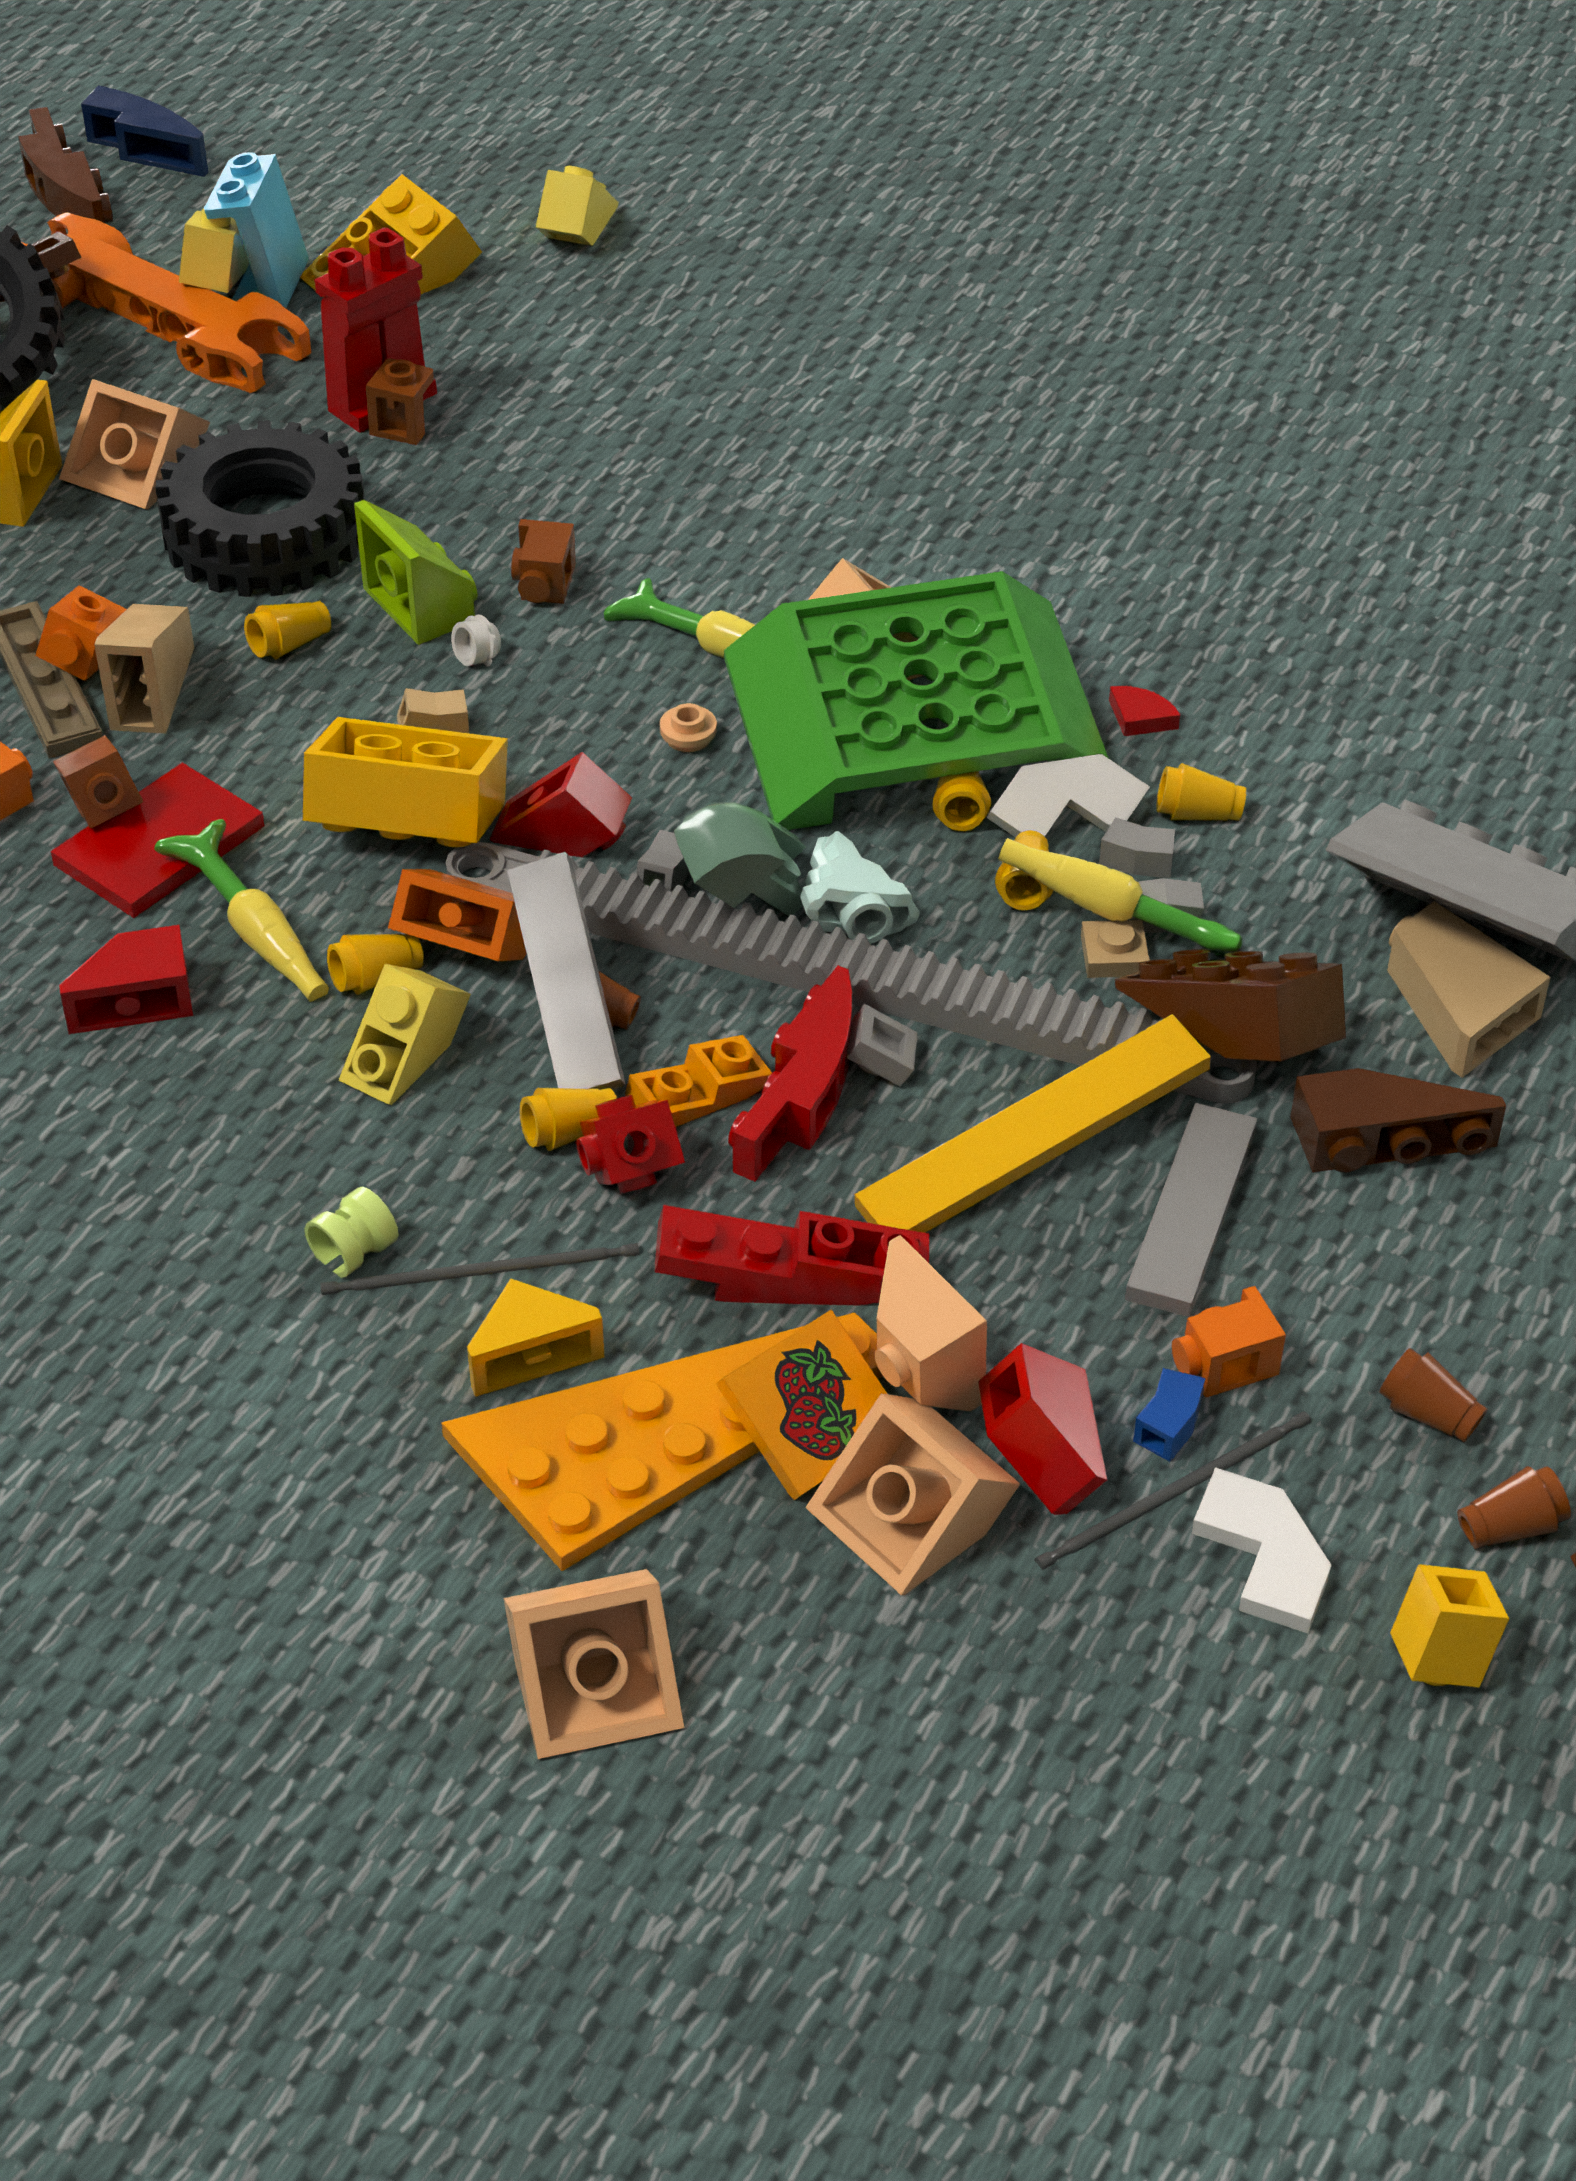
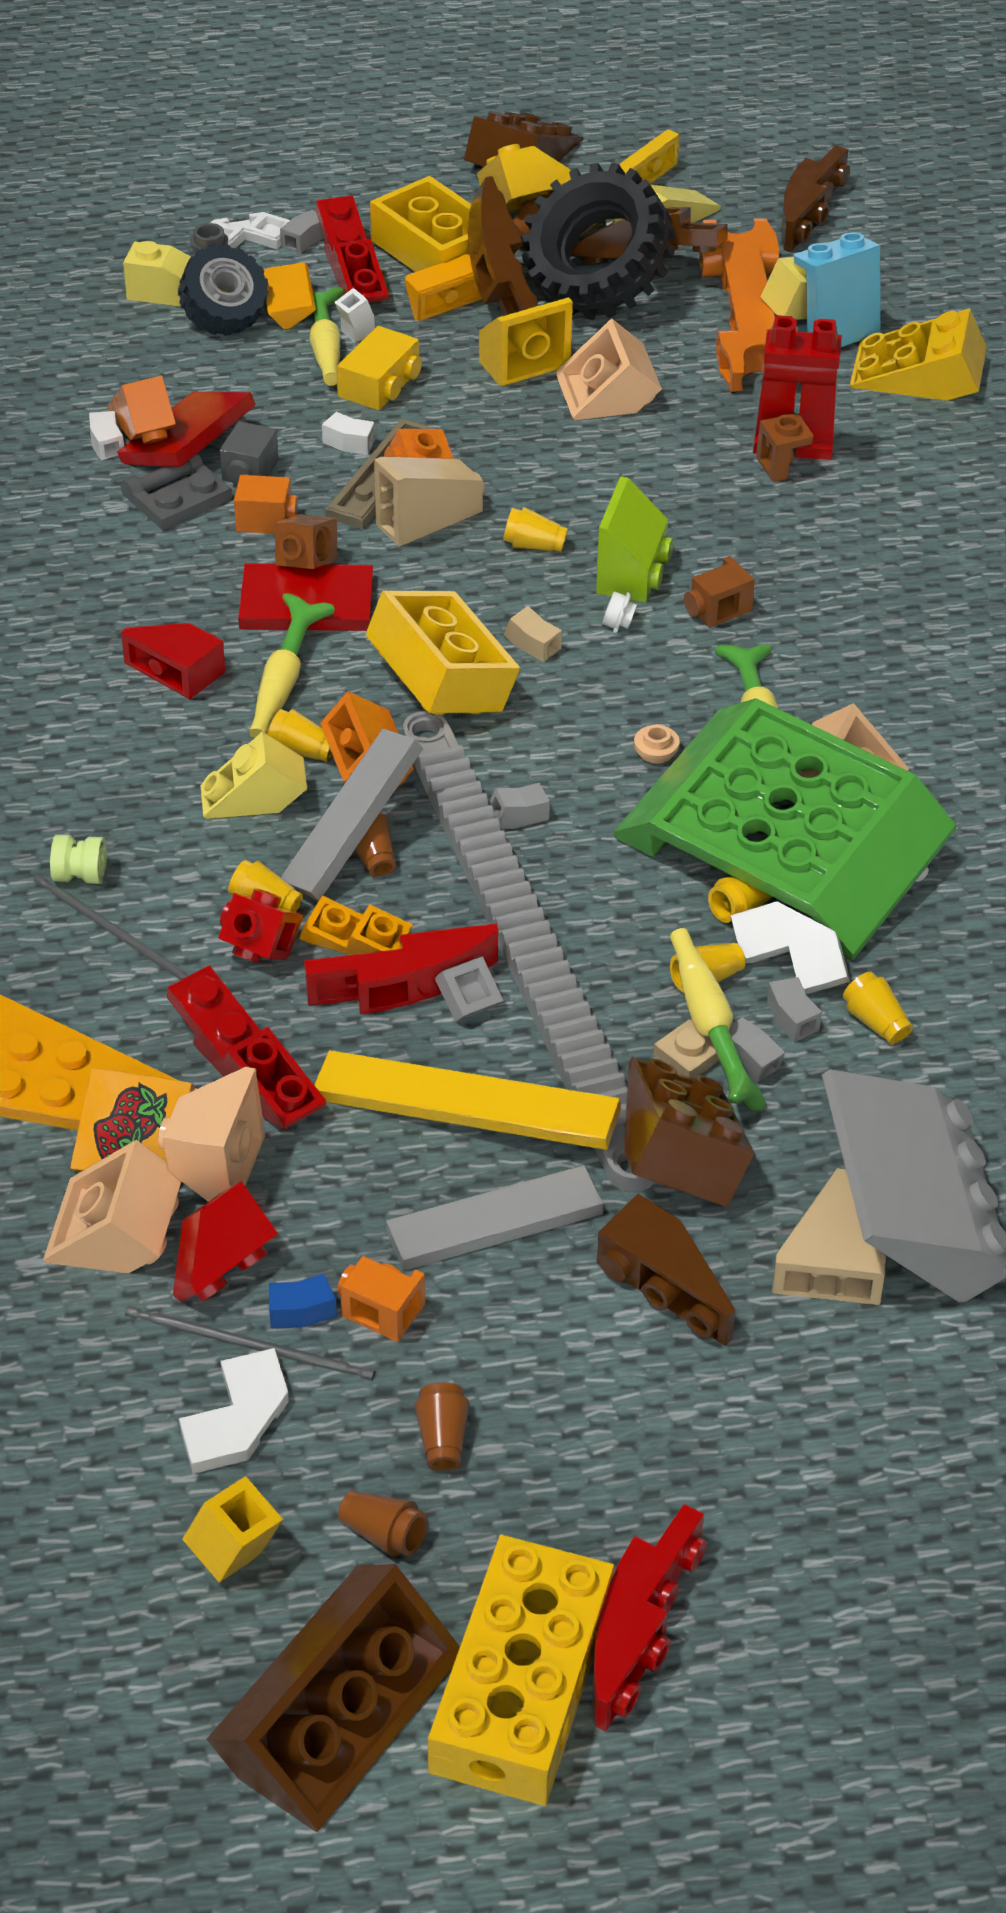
camera: 50 degrees right, 0 degrees up
(143, 131) = (892, 197): dark blue slope -> none
(260, 548) = (609, 418): black tyre -> none
(531, 1337) = (65, 976): yellow slope -> none
(566, 811) = (510, 738): red slope -> none
(740, 853) = (542, 825): sand green brick -> none
(854, 892) = (584, 898): light aqua rock -> none
(1142, 711) = (933, 936): red tile -> none

